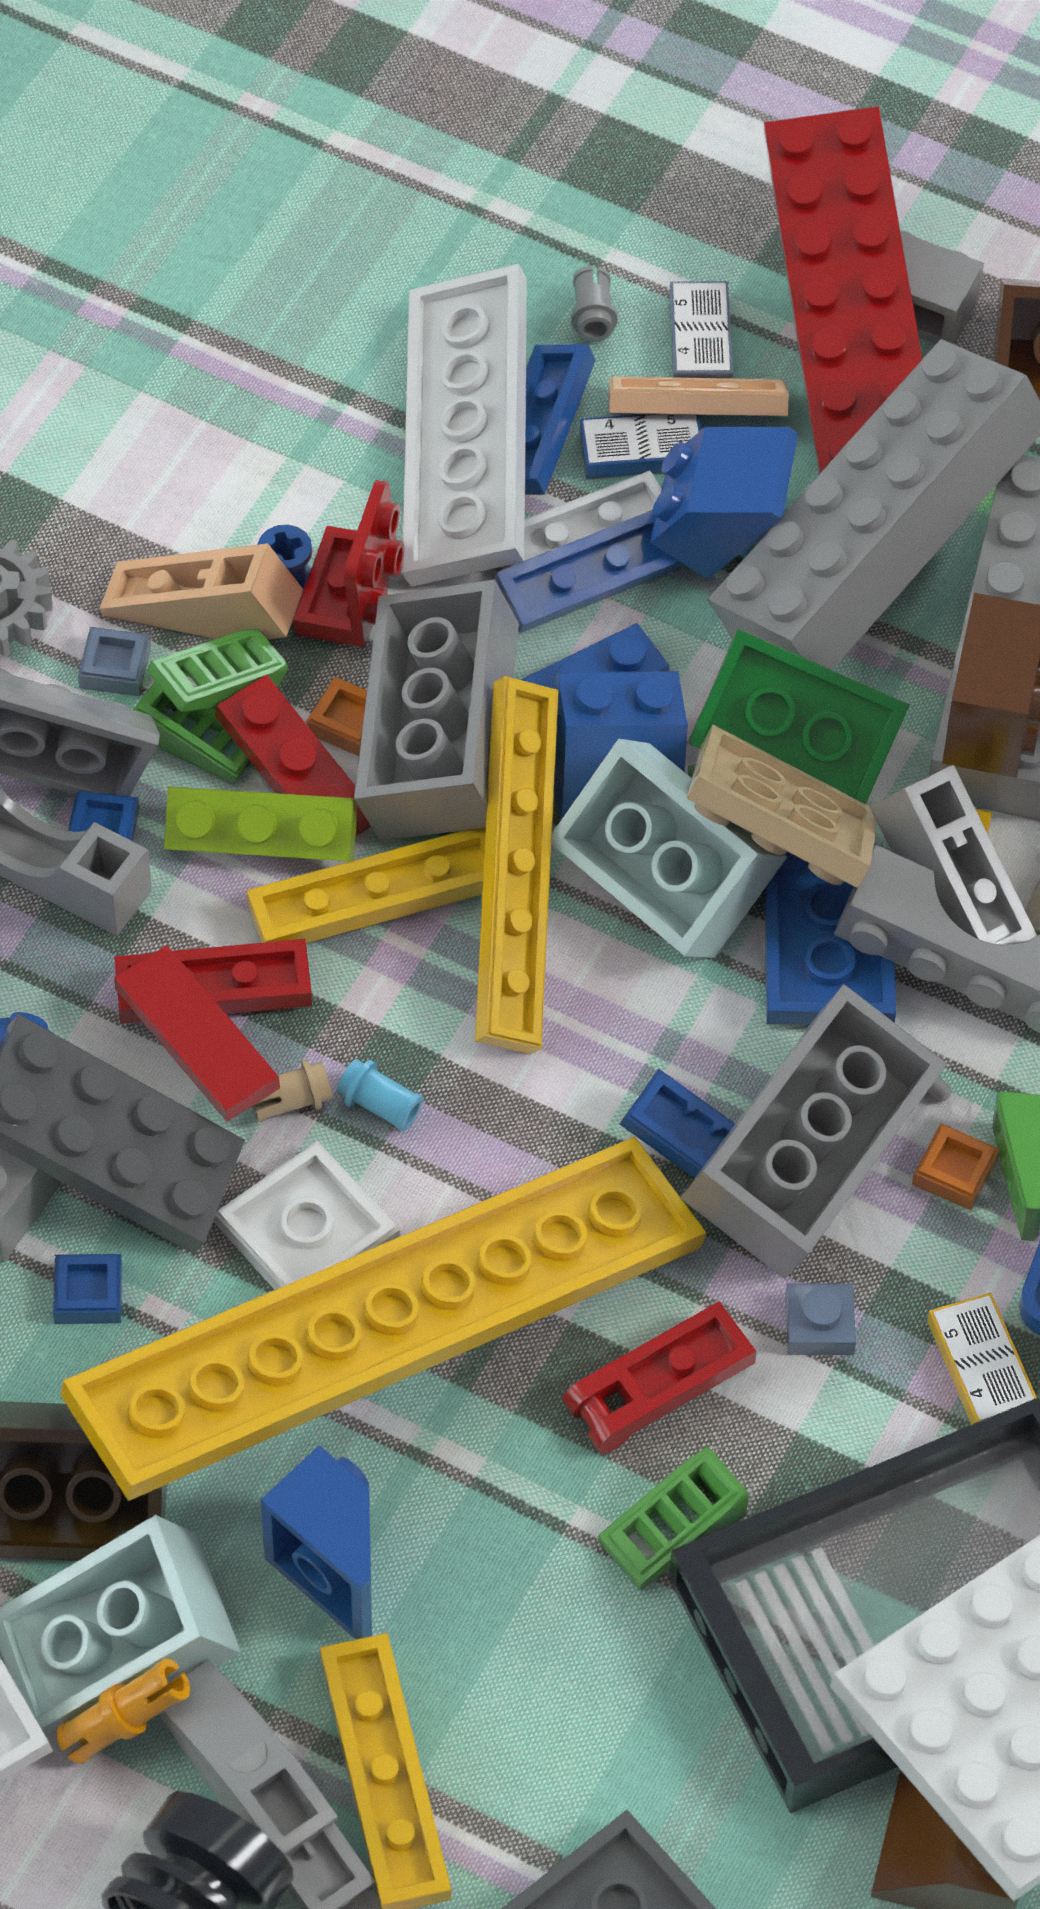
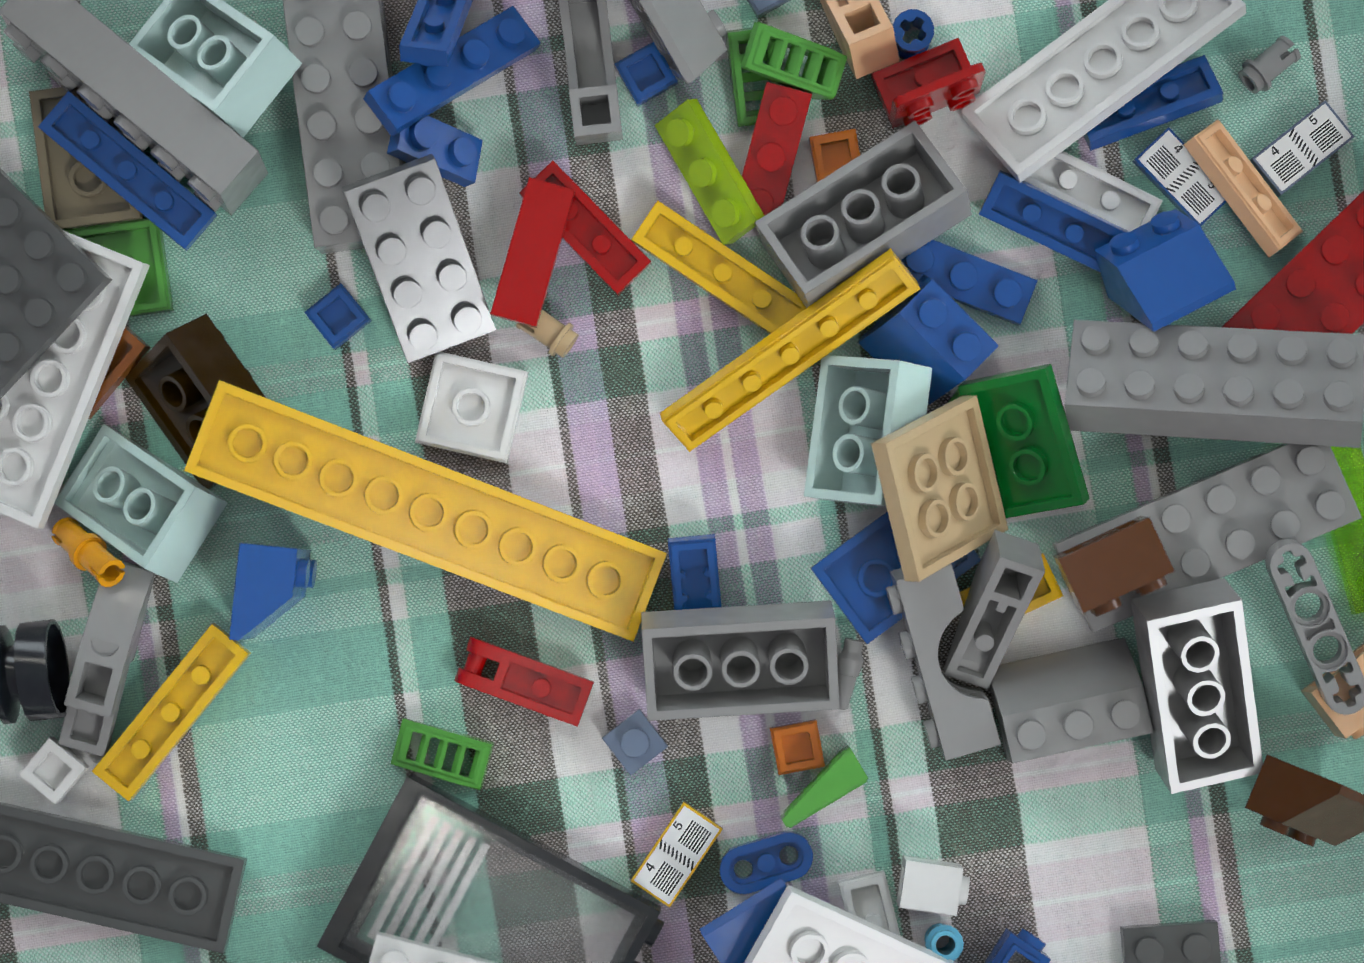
camera: 60 degrees right, 30 degrees up
(379, 1094) = (585, 383): medium azure pin -> none

